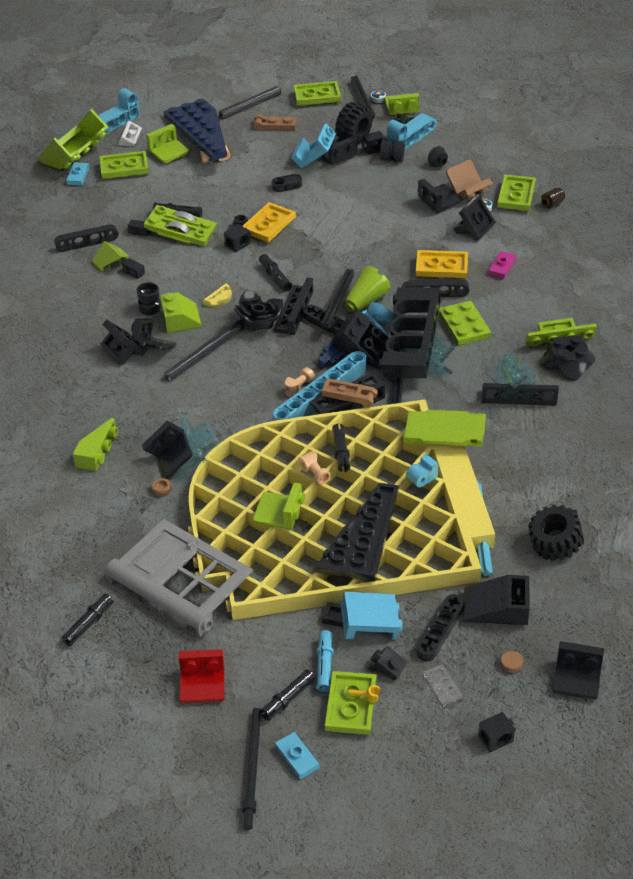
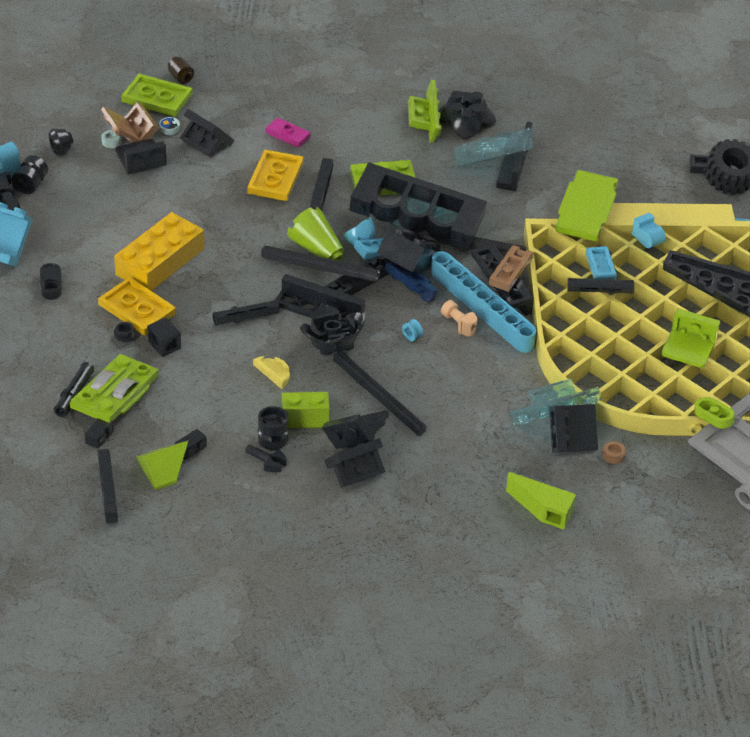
camera: 85 degrees left, 0 degrees up
(127, 307) = (270, 459): none -> black bar
(189, 527) = (714, 412): none -> lime plate
(275, 357) = (412, 330): none -> medium azure bush
(309, 463) = (624, 312): light nougat leg -> none
(327, 220) = (160, 251): none -> yellow brick
(370, 445) = (600, 263): none -> medium azure plate

